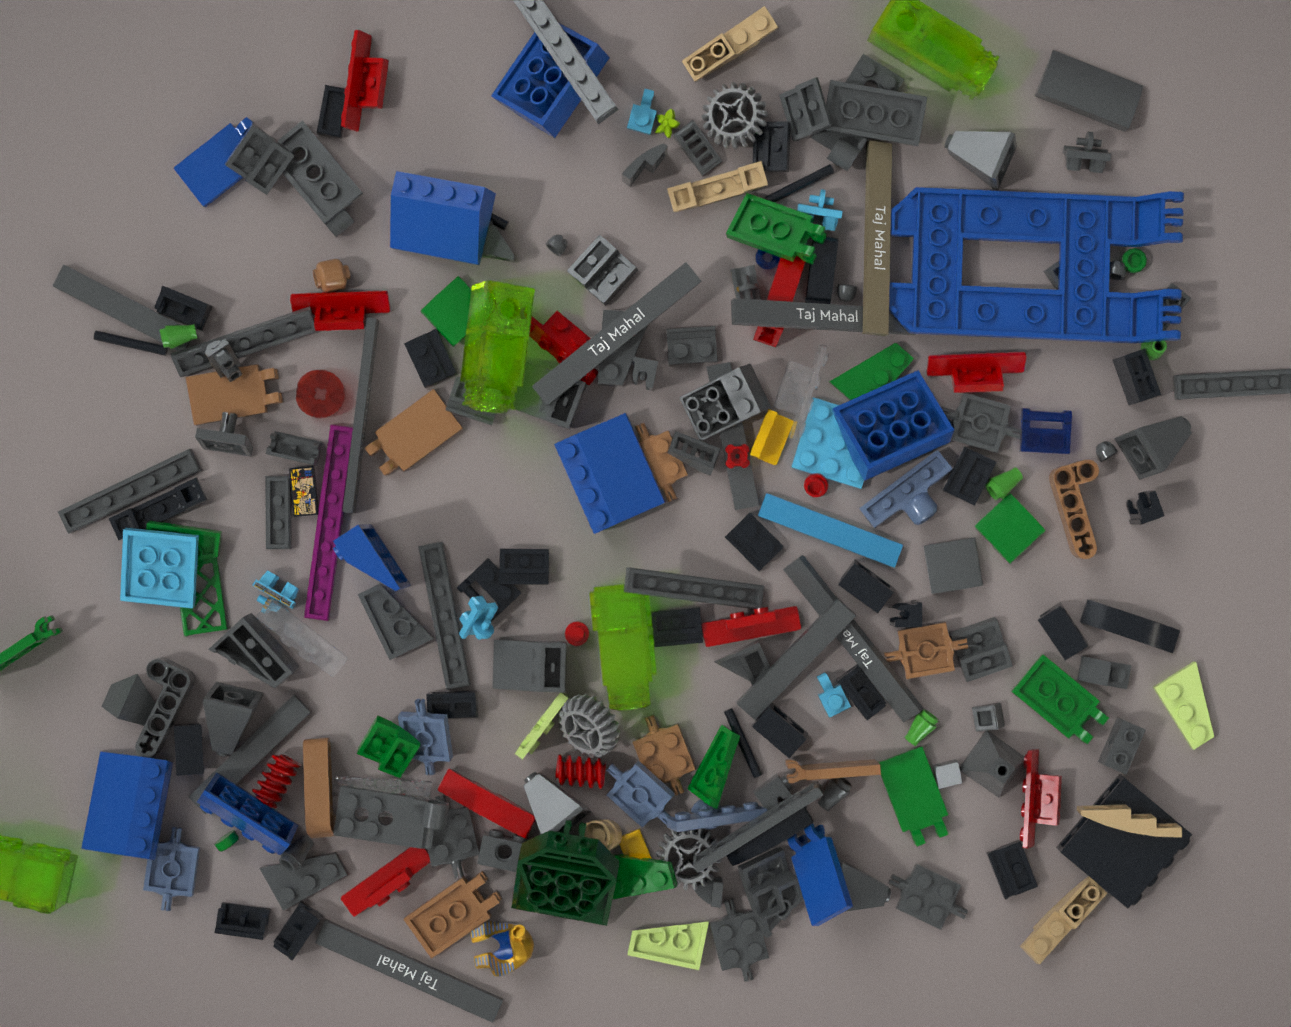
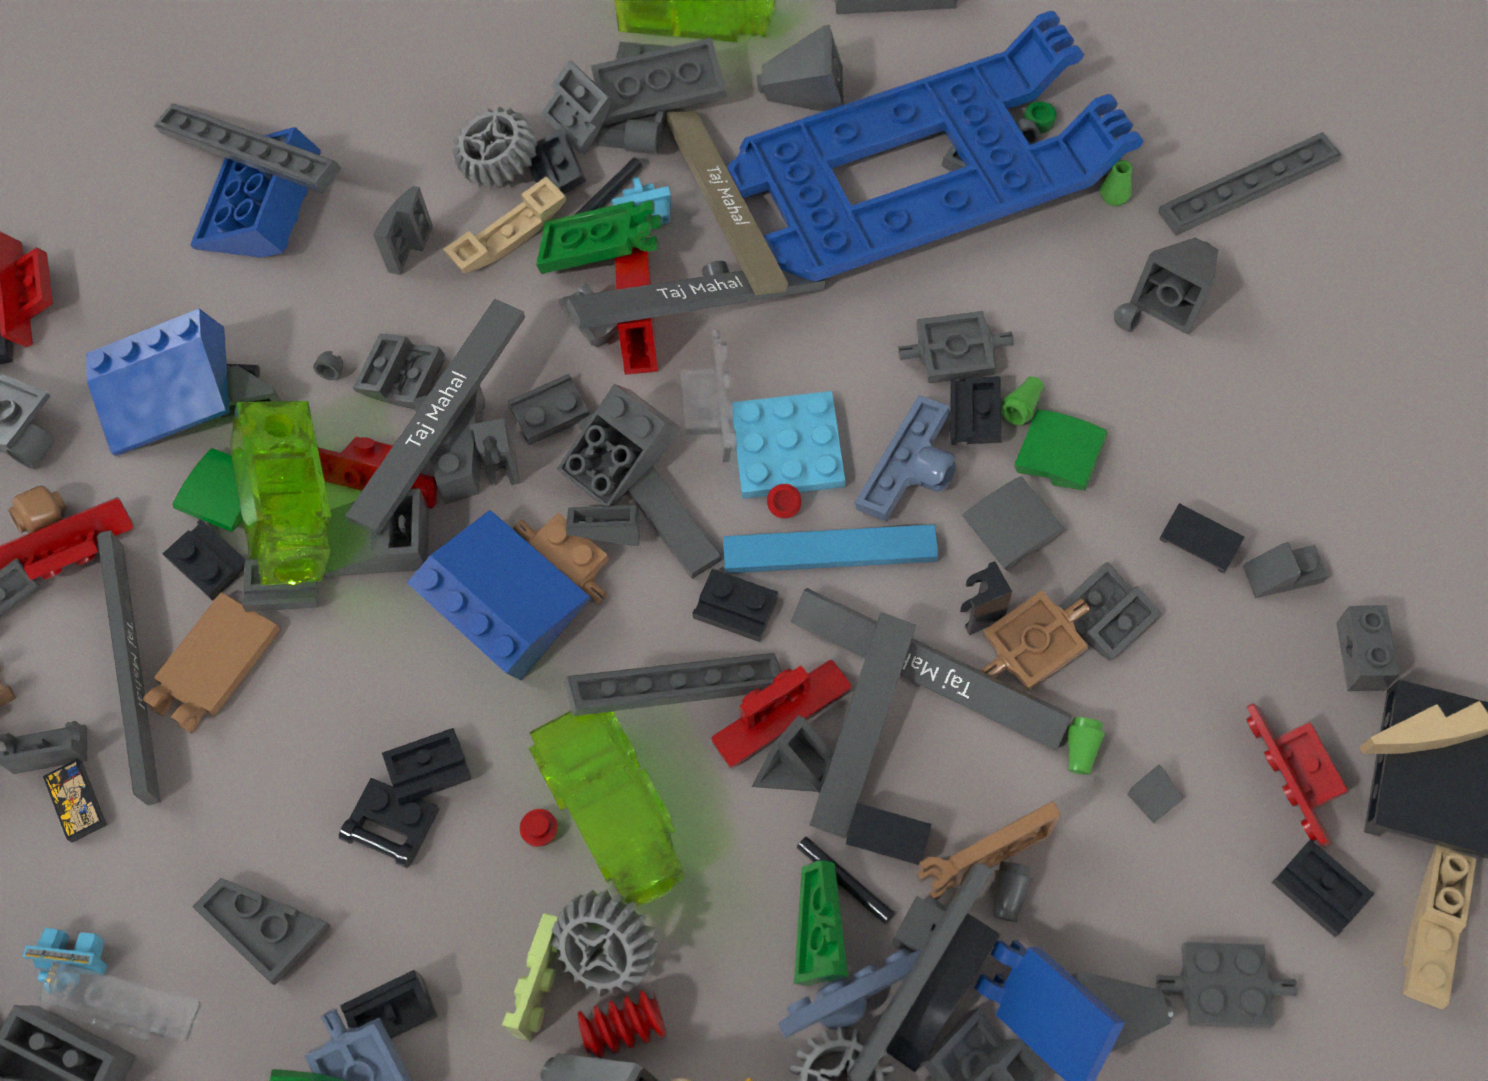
camera: 20 degrees left, 25 degrees down
(278, 512) = (44, 847): dark grey tile -> none
(306, 391) = (74, 677): clear red plate -> none
(328, 524) = (125, 843): magenta tile -> none
(368, 553) = (176, 825): blue slope -> none
(444, 615) = (336, 888): dark grey tile -> none
(479, 619) = (383, 861): medium azure hips -> none
(530, 665) = (485, 898): dark grey slope -> none
(639, 793) = (725, 1017): sand blue plate -> none
(642, 116) = (384, 192): medium azure plate -> none
(665, 753) = (738, 947): medium nougat plate -> none
(667, 123) = (422, 182): lime plant -> none
(677, 627) = (678, 756): black plate -> none
(692, 126) = (447, 189): dark grey slope -> none
(730, 44) = (460, 91): tan slope -> none
(732, 451) = (663, 495): red plate -> none
(766, 265) = (601, 270): clear blue plate -> none
(771, 437) = (698, 471): yellow panel -> none
(822, 272) = (673, 253): black beam -> none
(832, 698) = (941, 761): medium azure plate -> none
(861, 692) = (975, 736): black hinge -> none
(866, 586) = (912, 591): black hinge -> none
(873, 372) = (794, 354): green wing -> none
(892, 425) = (847, 387): blue slope -> none
(914, 793) = (1125, 844): green tile -> none
(976, 371) = (917, 290): red bracket -> none
(988, 717) = (1166, 694): dark grey slope -> none
(992, 763) = (1209, 752): dark grey slope -> none
(1045, 439) = (1046, 332): clear blue plate -> none
(1059, 699) = (1250, 629): green tile -> none
(1078, 509) = (1161, 423): medium nougat beam -> none
(1097, 156) = (925, 30): dark grey hips -> none
(1129, 626) = (1282, 496): black slope -> none
(1136, 377) = (1115, 222): black hinge -> none
(1147, 508) = (1217, 347): black hinge -> none
(1187, 705) = (1418, 566): yellowish green wing -> none

